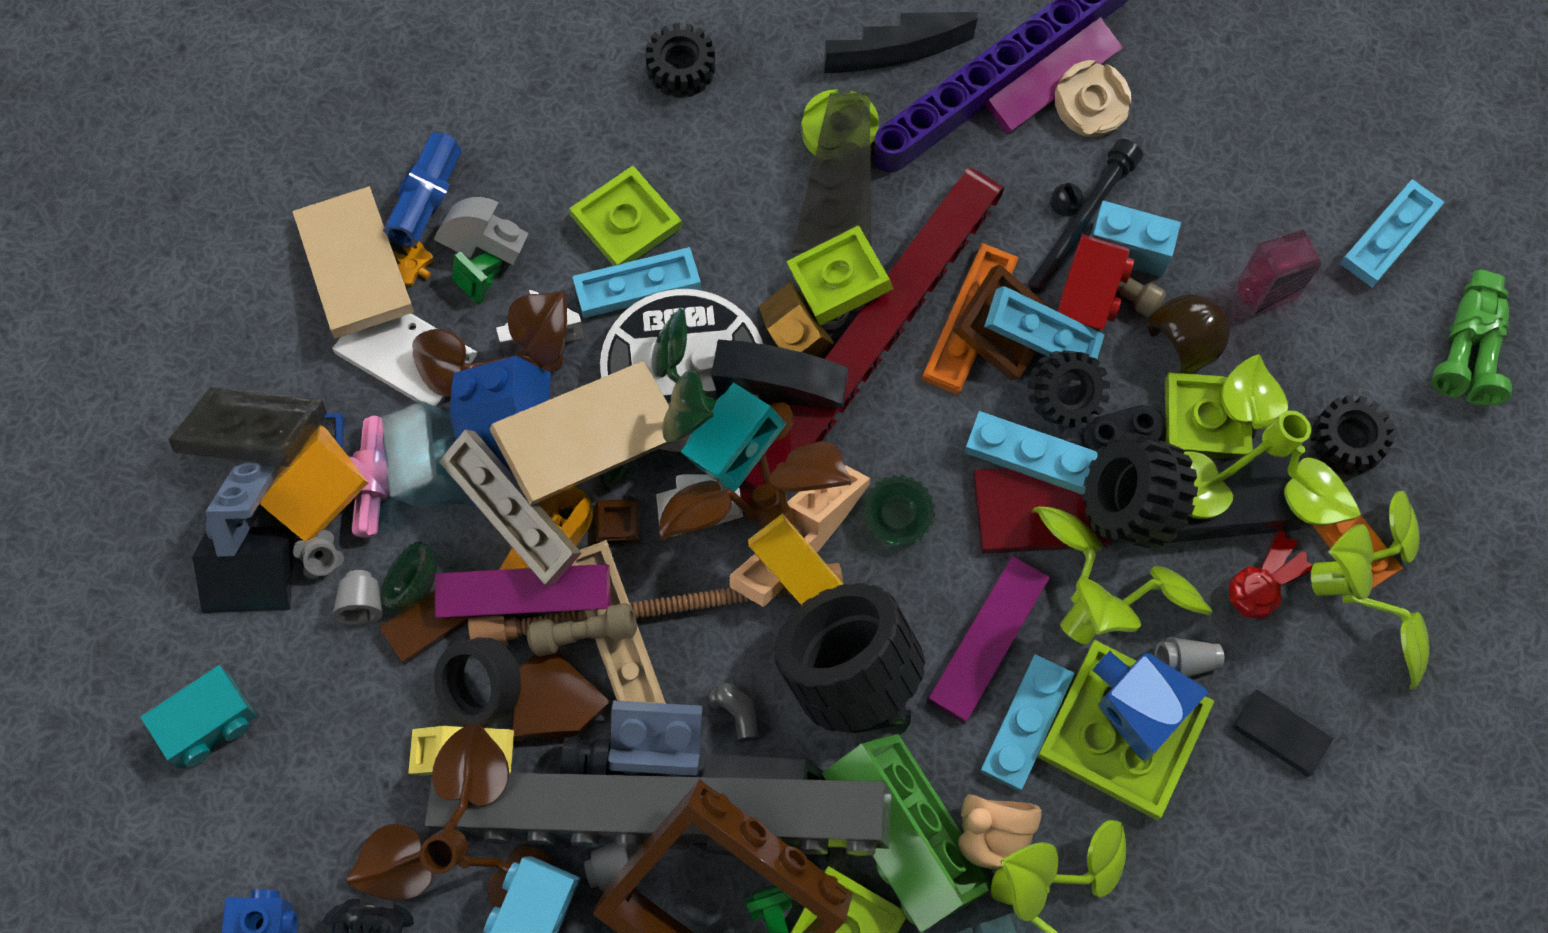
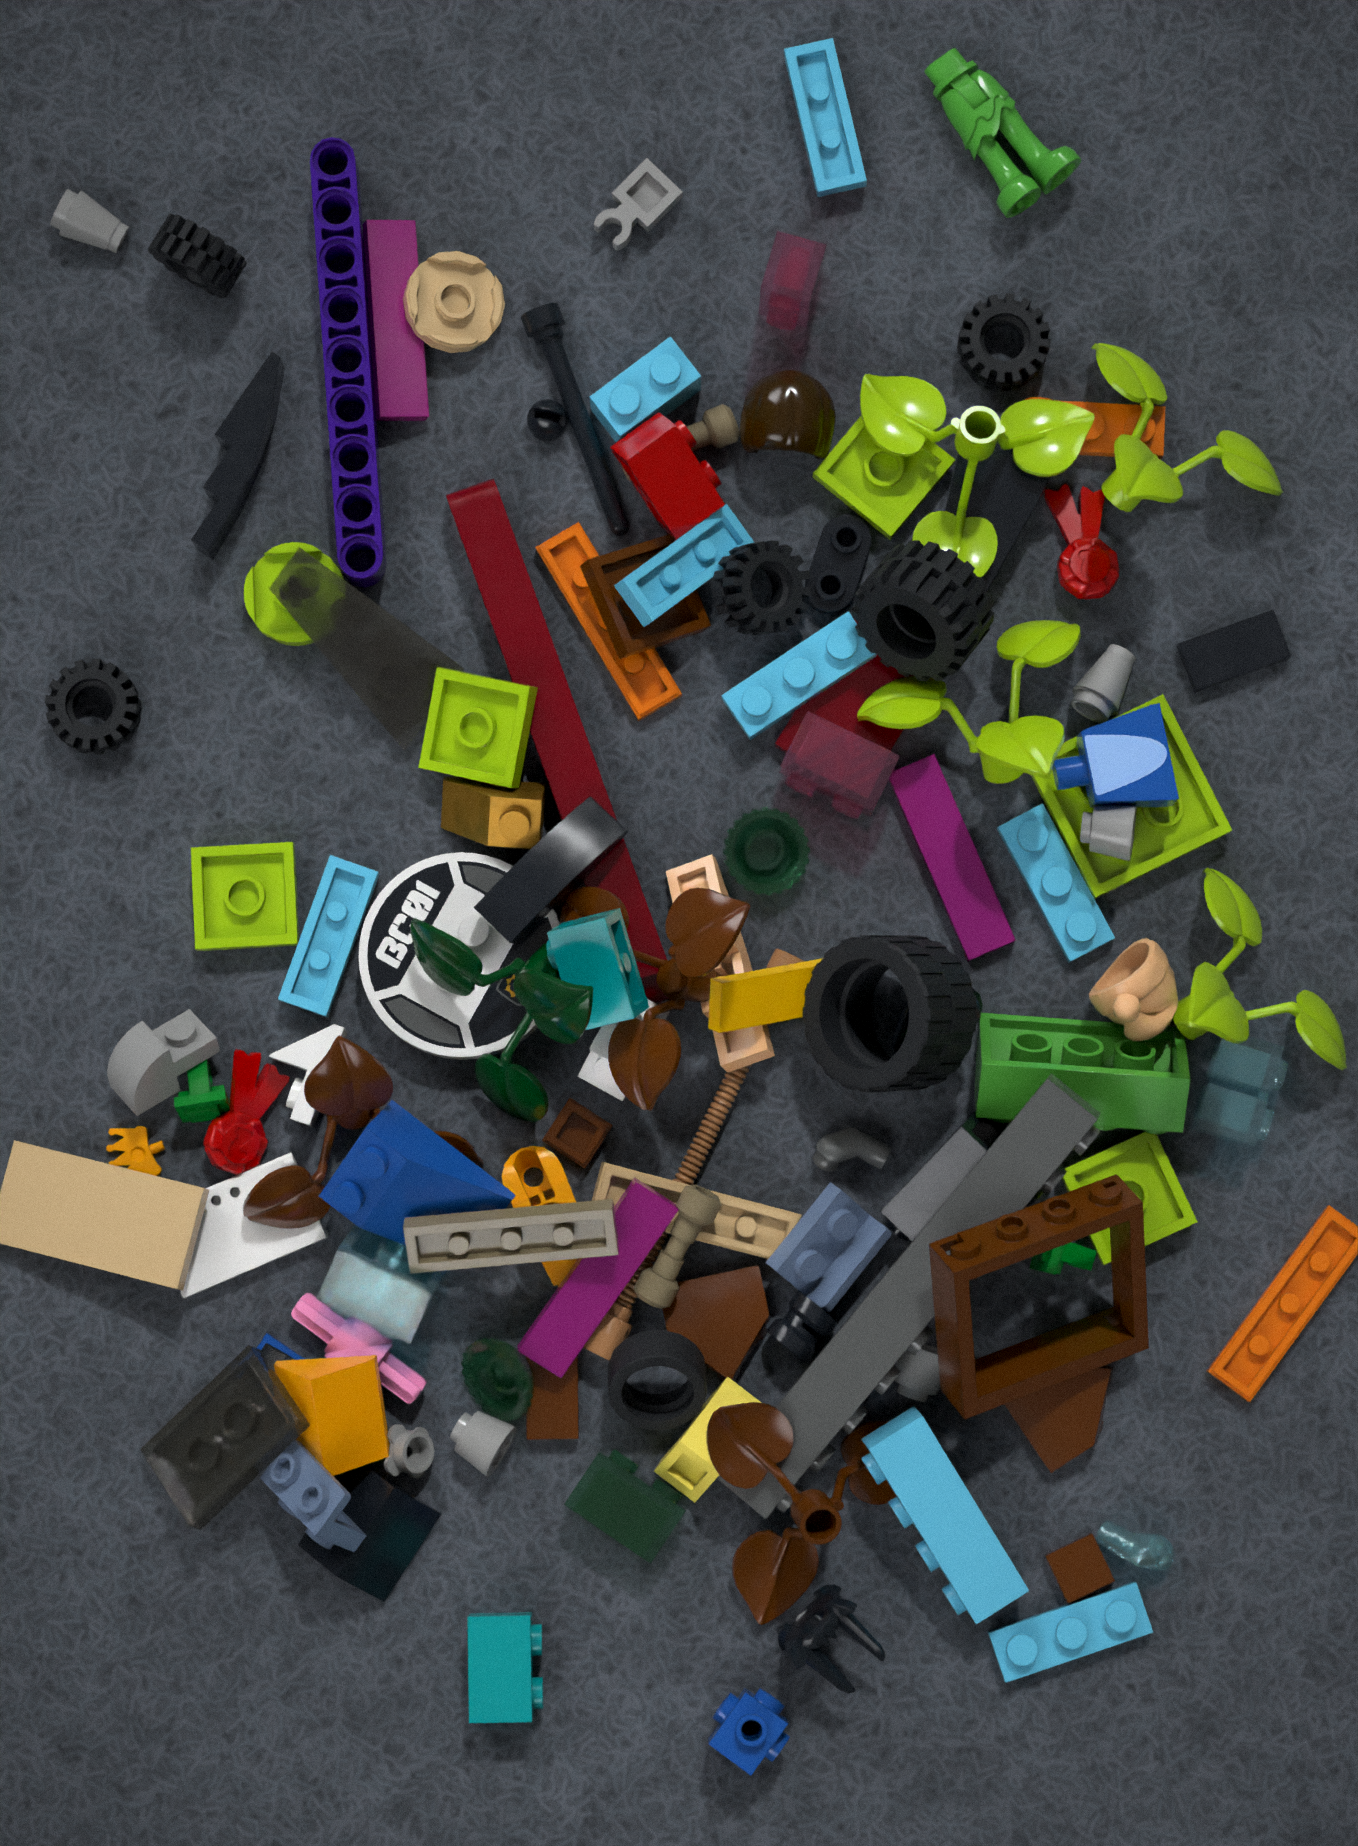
camera: 50 degrees left, 15 degrees up
(373, 724) = (626, 1505): none -> clear green brick
(422, 190) = (63, 1087): blue piece -> none
(465, 312) = (237, 1138): none -> red piece
(583, 432) = (490, 1110): tan tile -> none
(992, 514) = (838, 766): none -> clear pink brick
(1094, 726) = (1110, 830): none -> light grey hat
(1247, 162) = (642, 200): none -> light grey plate

